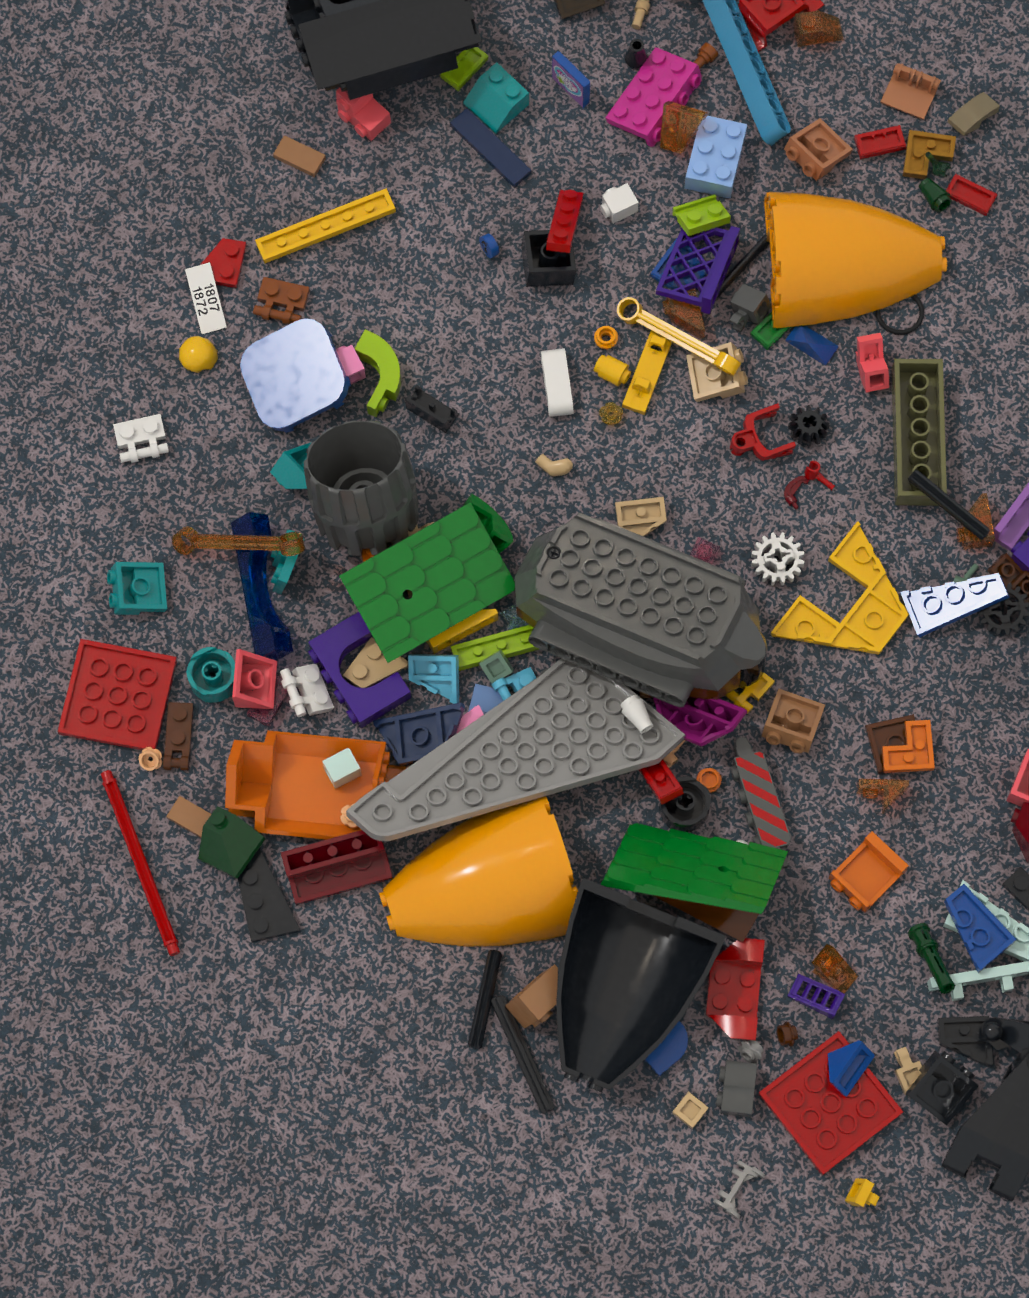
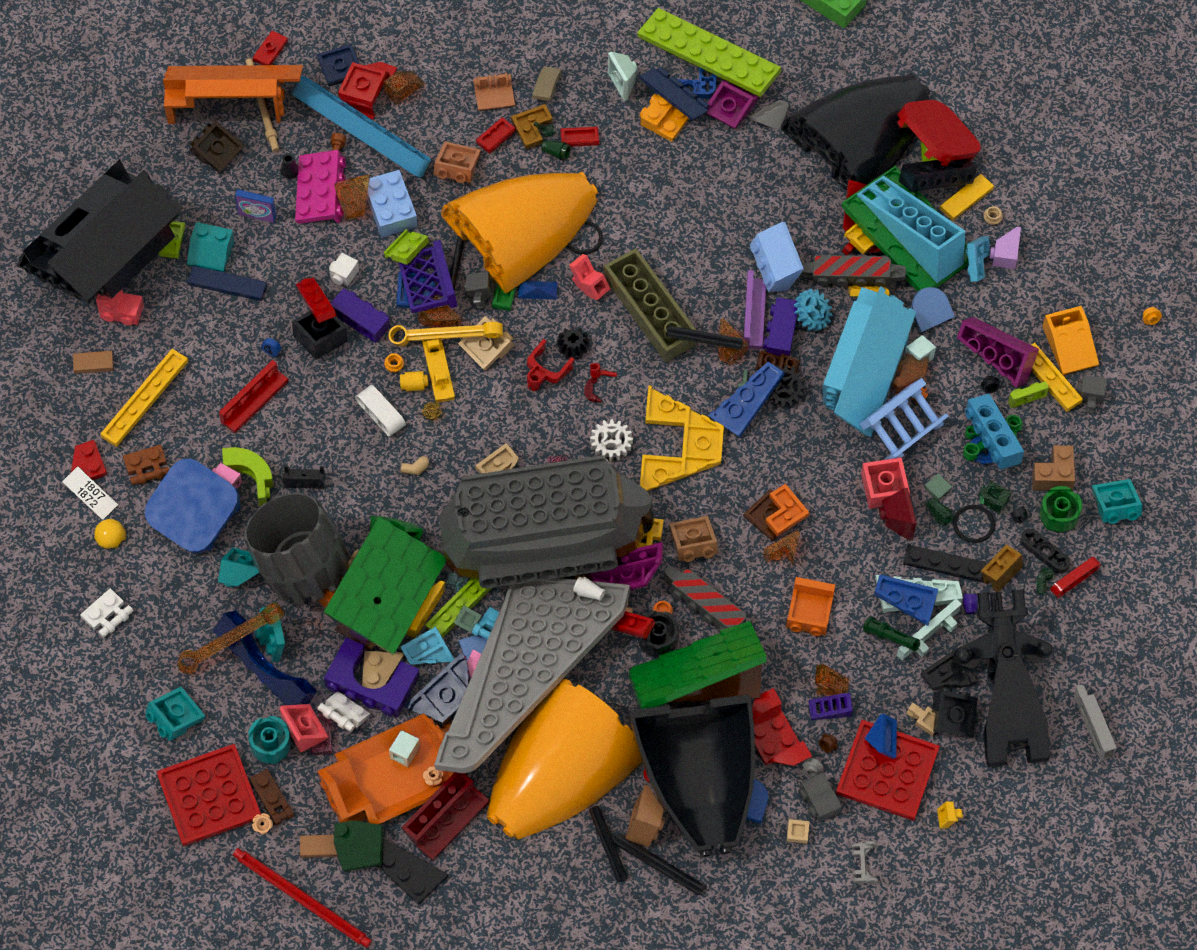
camera: 35 degrees left, 10 degrees down
(429, 292) = (252, 397): none -> red fence
(604, 263) = (360, 315): none -> dark purple brick

